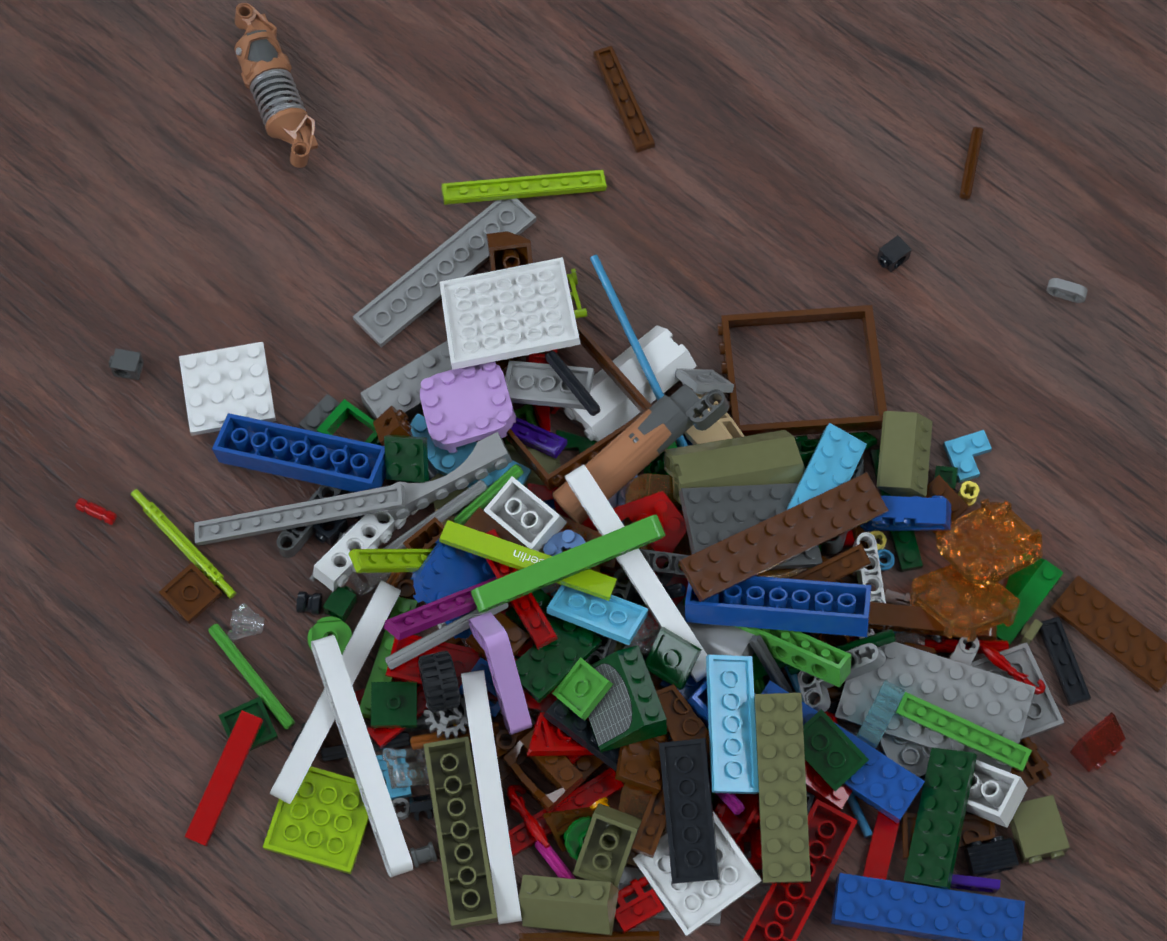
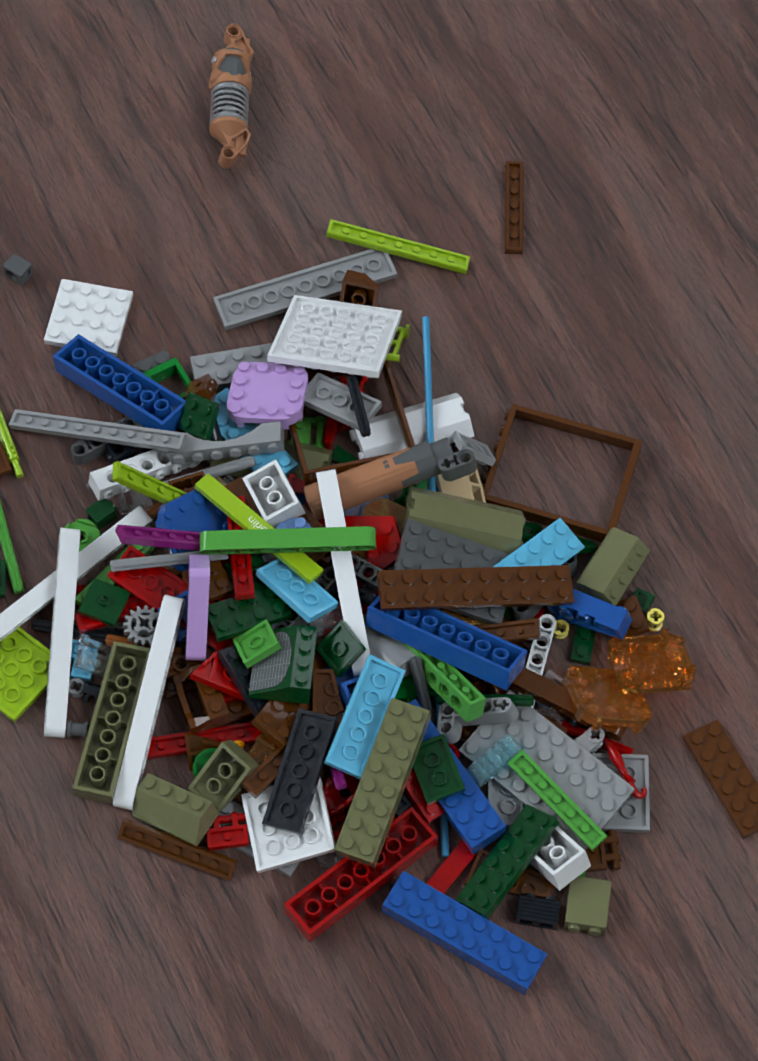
camera: 20 degrees right, 5 degrees down
(245, 623) = (19, 499): clear rock -> none
(309, 603) = (76, 503): black wheel -> none
(439, 681) = (144, 593): black tyre -> none
(487, 496) = (281, 458): bright green axle -> none
(518, 805) = (170, 721): red piece -> none
(539, 438) = (315, 442): dark purple tile -> none
(554, 861) = (178, 771): dark pink axle -> none
(883, 553) = (559, 641): dark azure plate -> none
(893, 254) = (681, 408): black brick -> none
(961, 453) = (668, 584): medium azure plate -> none
(975, 883) = (513, 926): dark purple tile -> none
(1030, 631) = (655, 748): olive plate -> none
(1031, 587) = (669, 715): green wedge -> none
(1064, 661) = (674, 783): black tile -> none
(1099, 743) = (670, 856): clear red slope -> none

